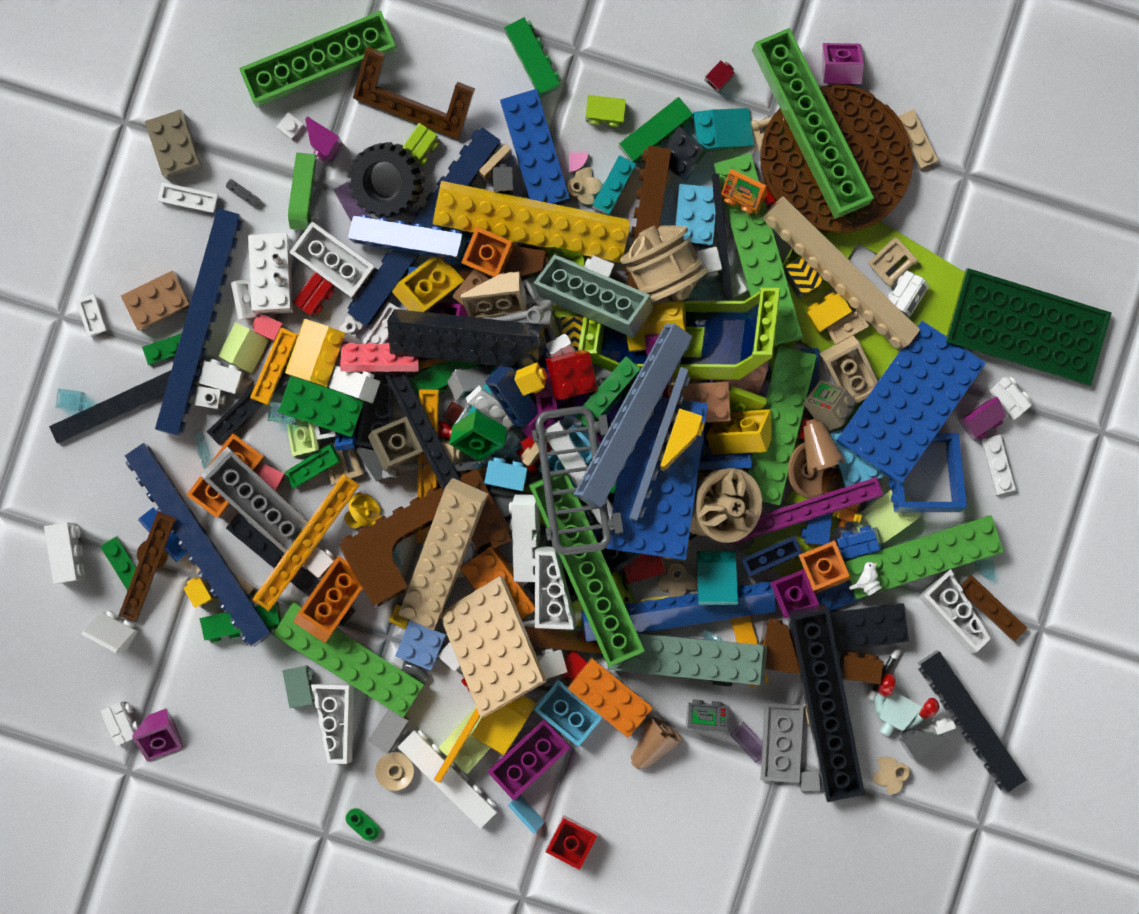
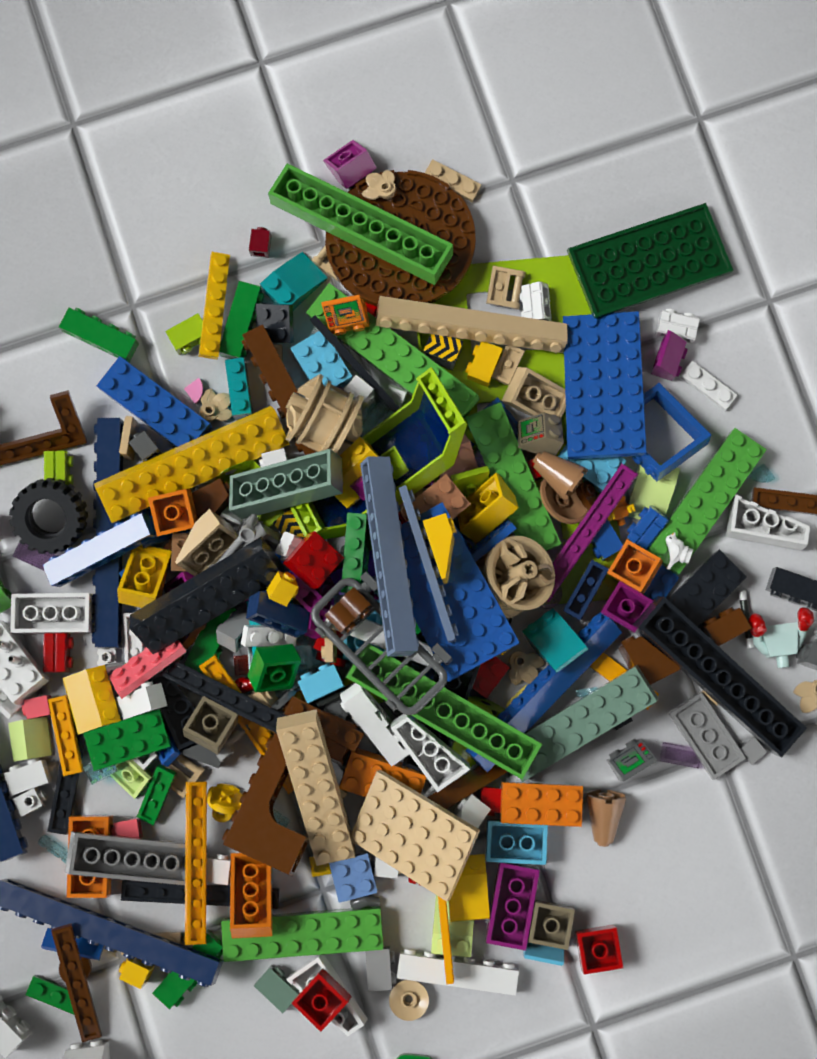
camera: 35 degrees left, 5 degrees down
(328, 720) = (321, 999): none -> red brick
(548, 795) = (551, 924): none -> dark tan brick
(569, 436) = (348, 611): none -> reddish brown brick
(643, 102) = (214, 305): none -> yellow plate
(852, 98) = (380, 185): none -> tan plate

